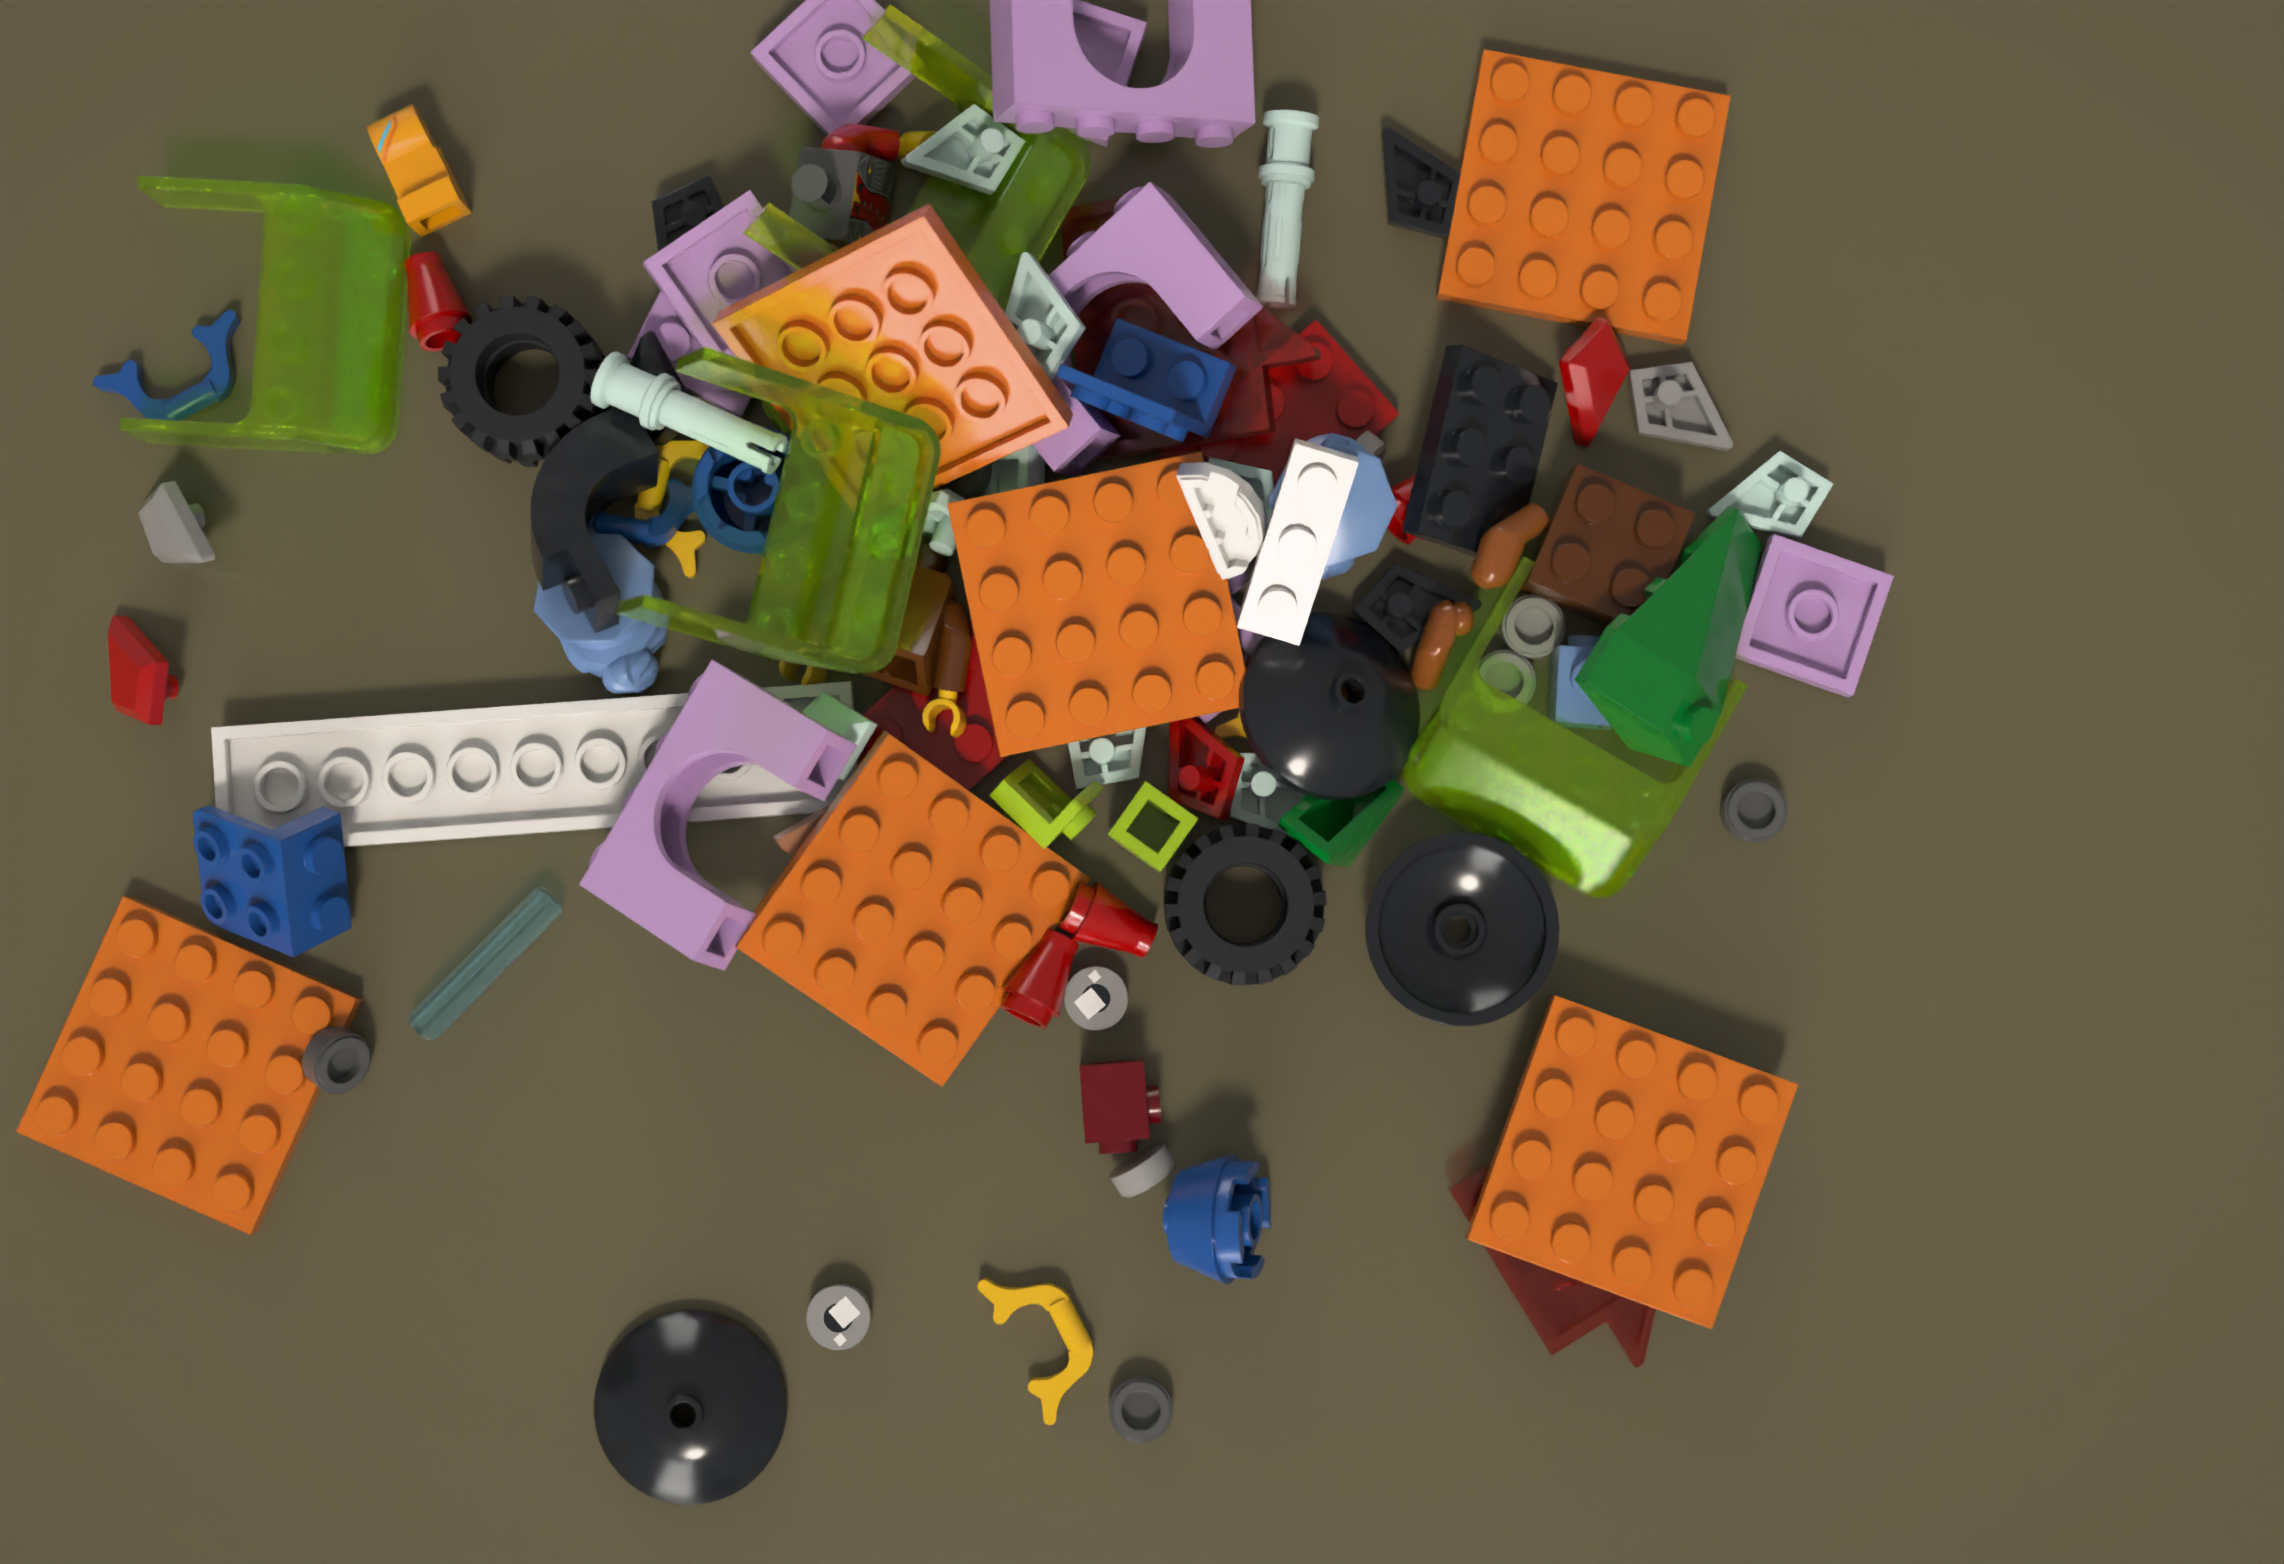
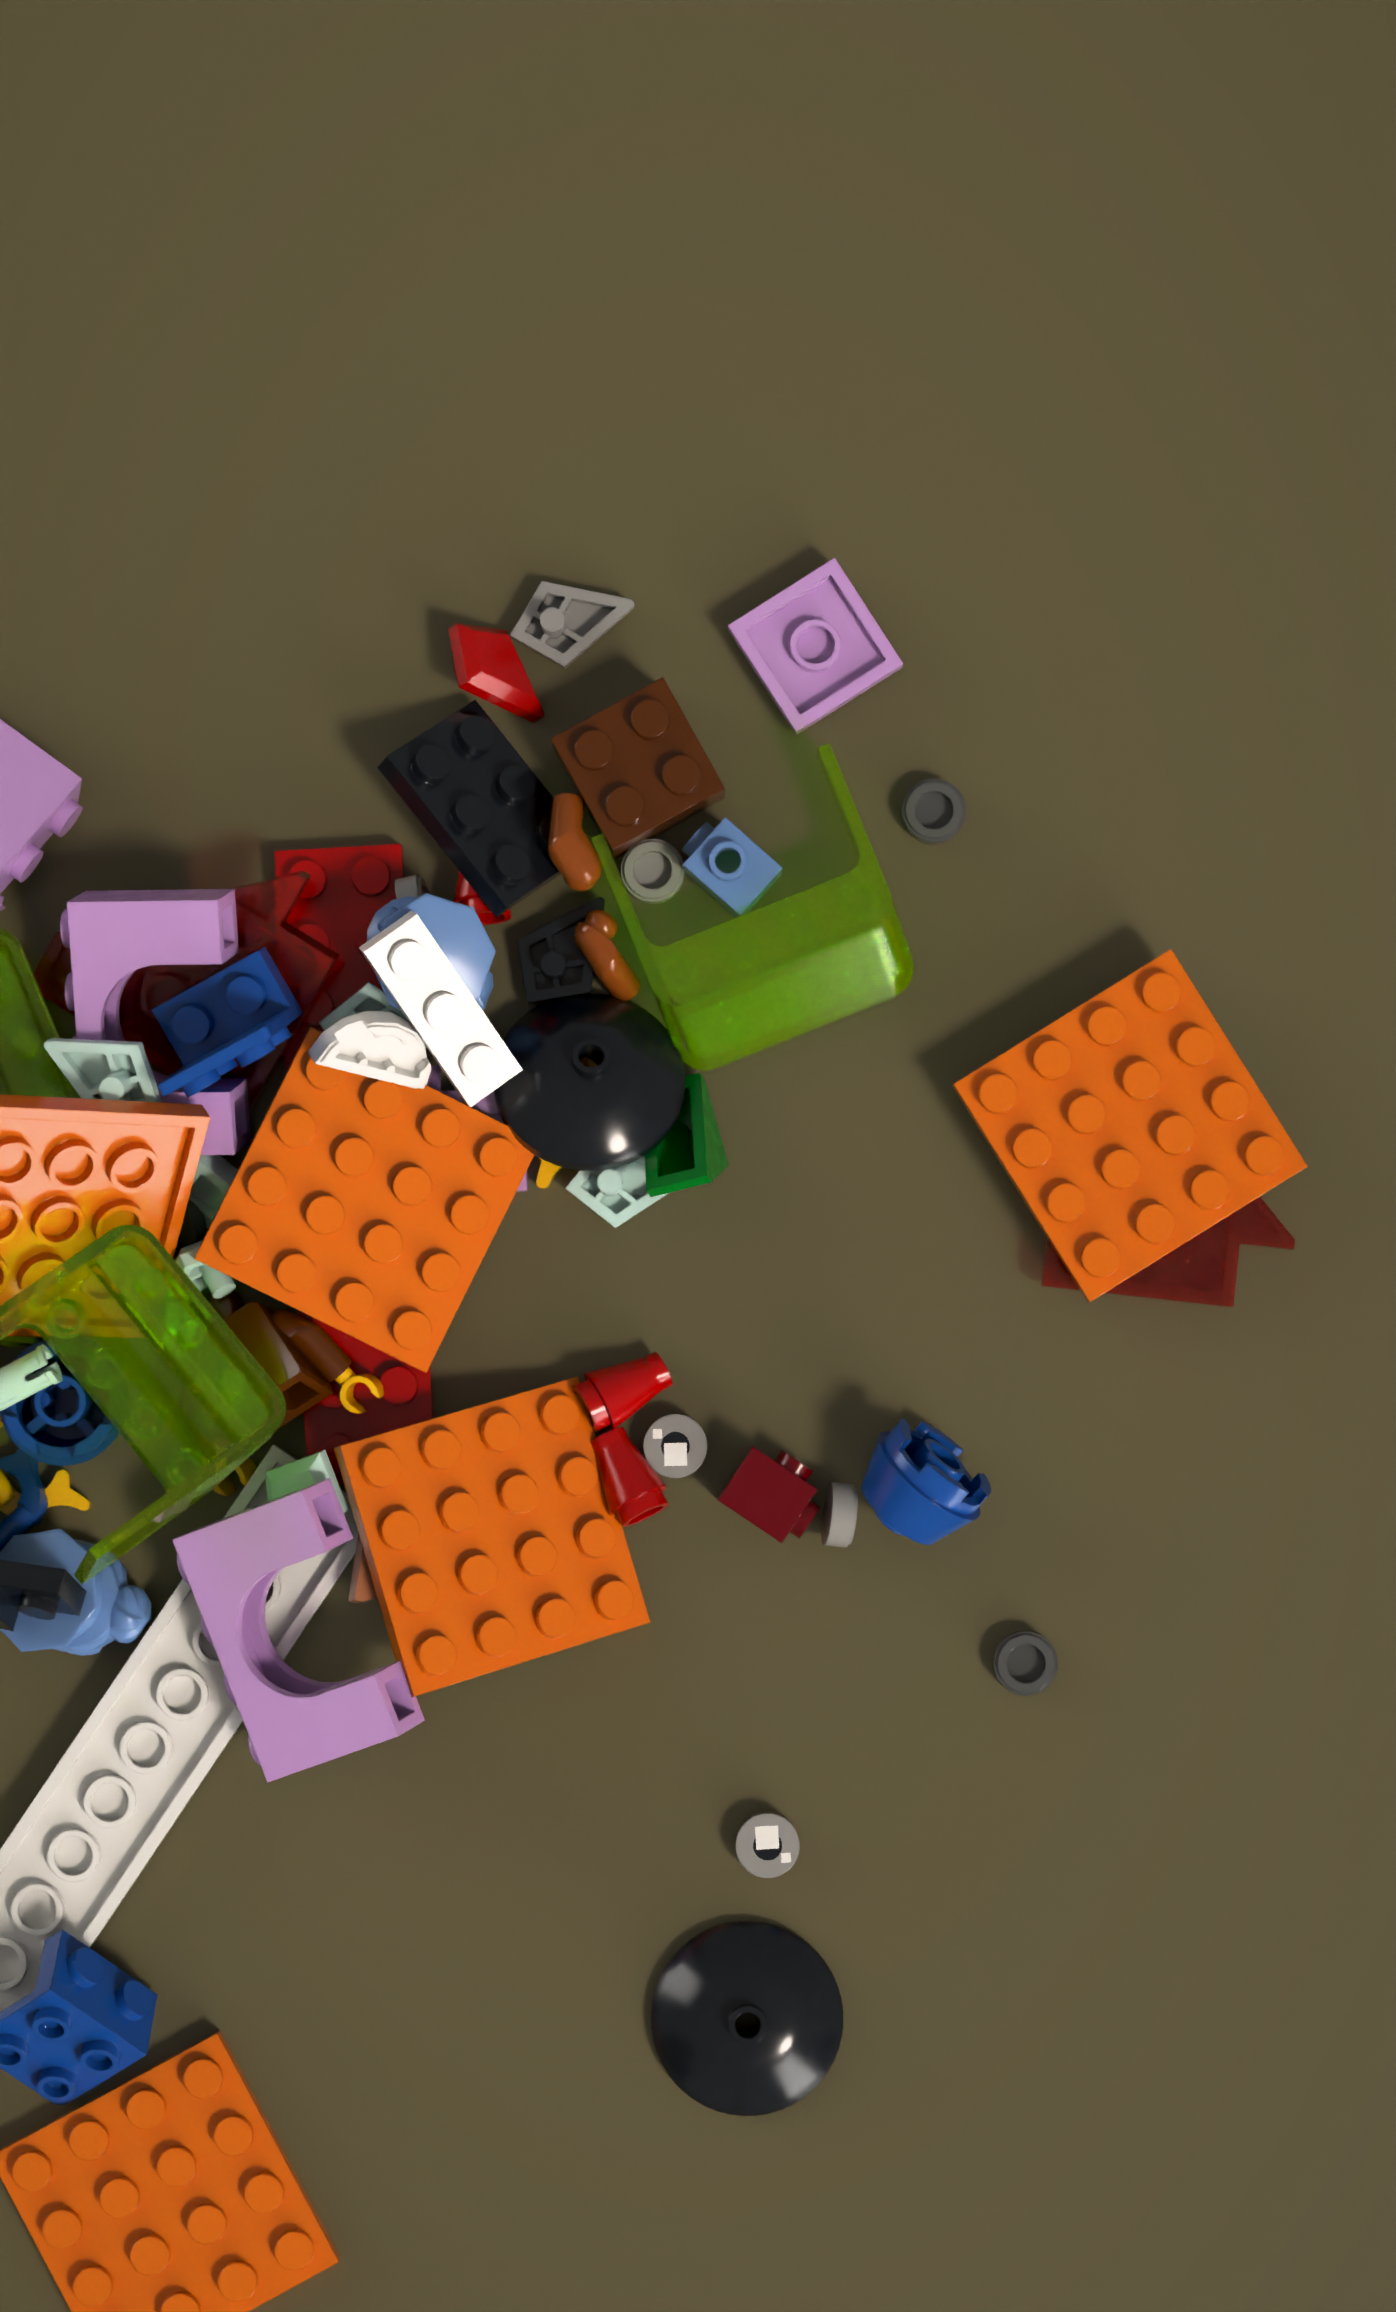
camera: 45 degrees left, 0 degrees up
(336, 1060) = (254, 2086): dark grey tile -> none
(484, 964) = (269, 1910): clear light blue axle -> none
(1041, 806) = (491, 1370): lime bracket -> none
(1069, 1325) = (915, 1668): yellow helmet -> none
(1107, 758) = (493, 1289): light aqua piece -> none
(1152, 827) = (575, 1296): lime brick -> none
(1202, 768) = (560, 1220): red piece -> none
(1285, 179) = (144, 786): light aqua pin -> none
(1301, 904) = (692, 1214): black tyre -> none
(1417, 187) = (233, 686): black piece -> none
(1507, 940) = (852, 1068): black dish -> none
(1509, 673) = (675, 920): tile -> none
(1583, 197) = (343, 562): orange plate -> none
(1670, 662) = (763, 788): green wedge -> none
(1777, 497) = (700, 600): light aqua piece -> none

